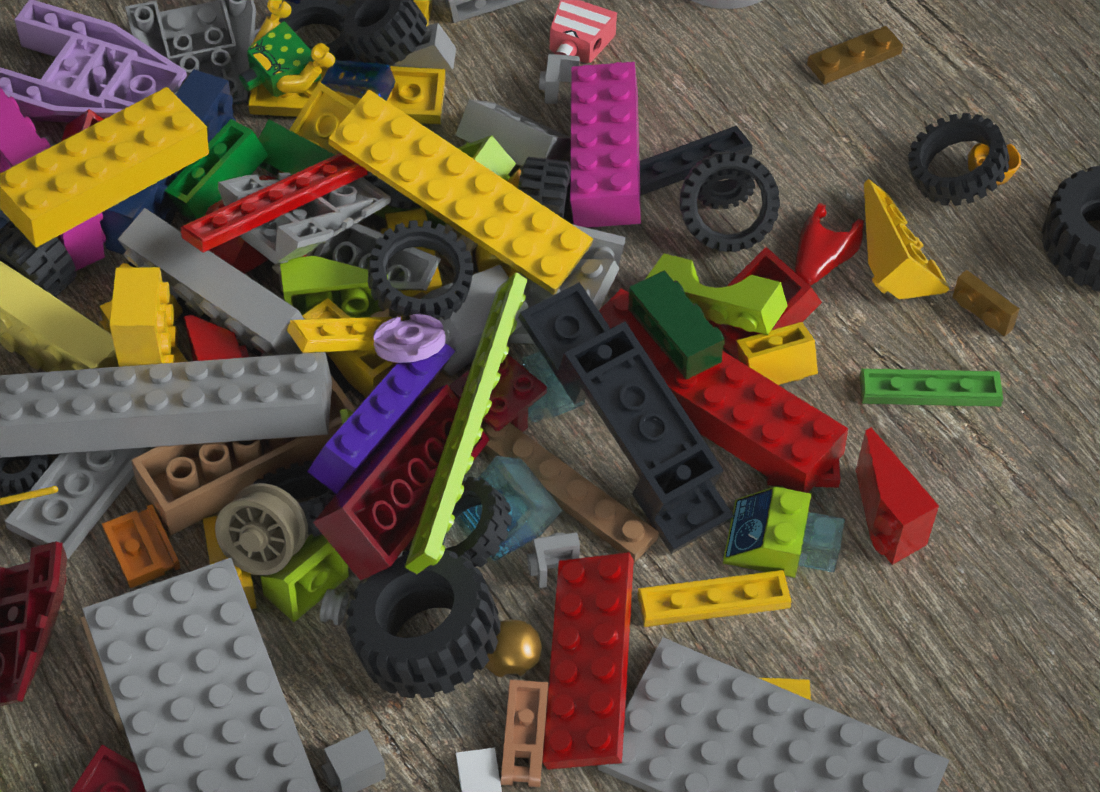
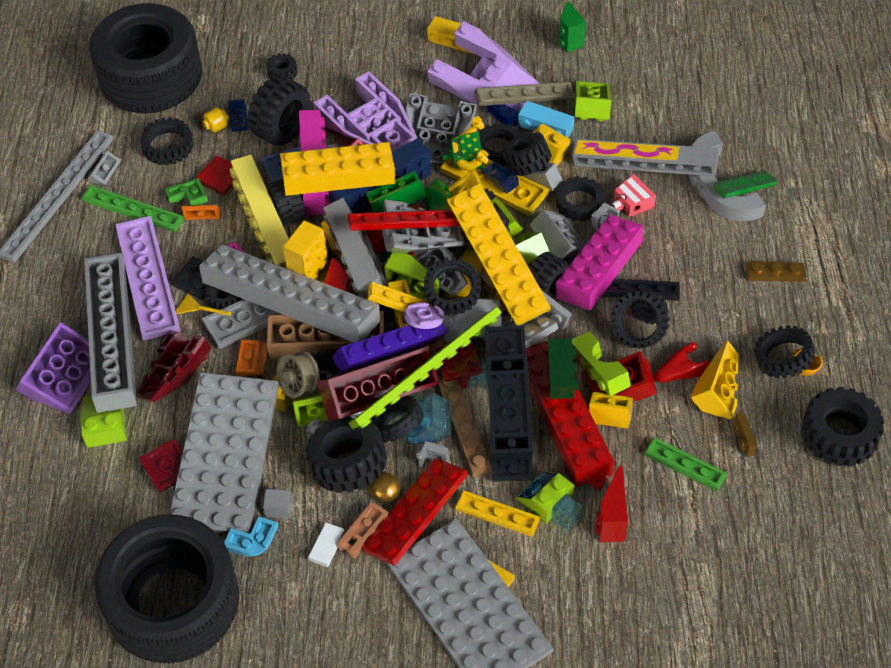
camera: 35 degrees right, 0 degrees up
(500, 42) = (579, 184): none -> black tyre

